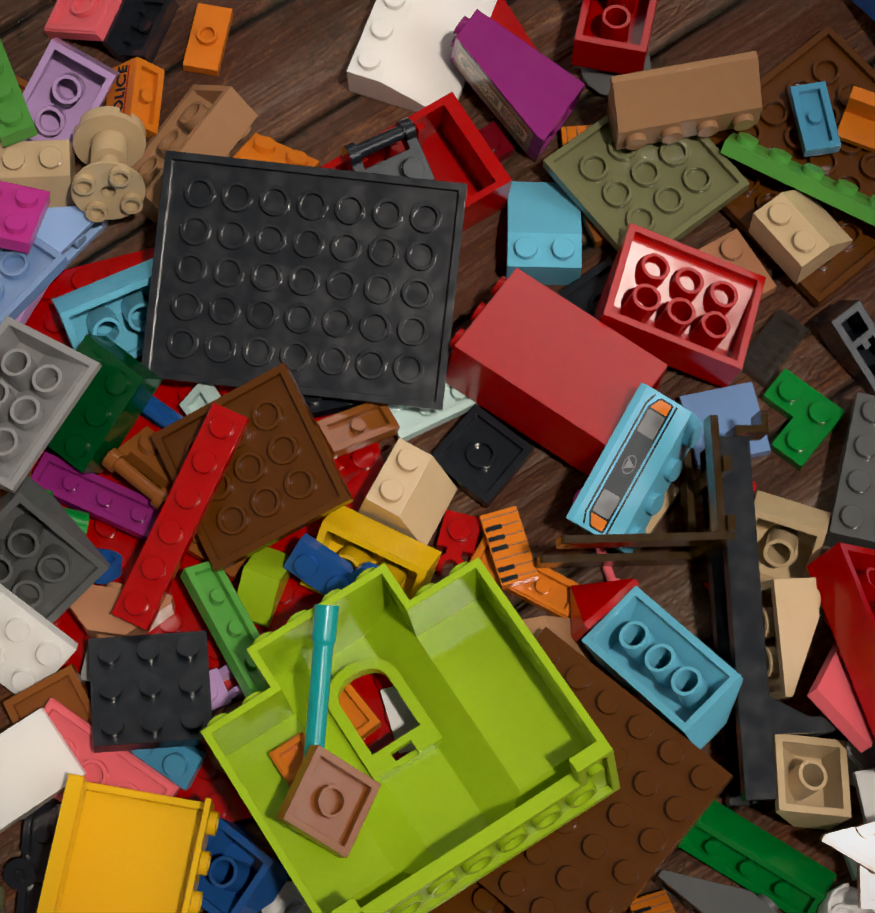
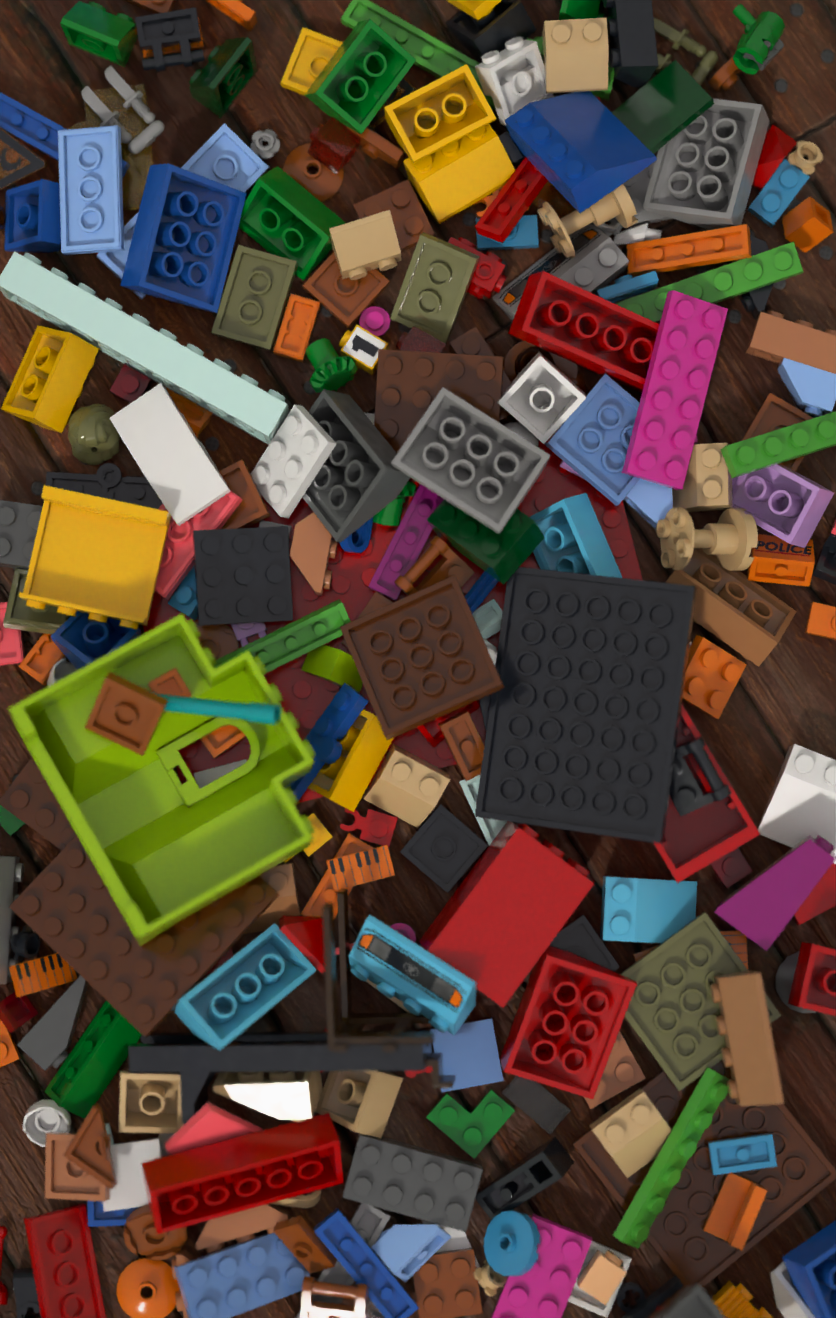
camera: 90 degrees right, 15 degrees up
(180, 517) = (380, 599): red plate -> none

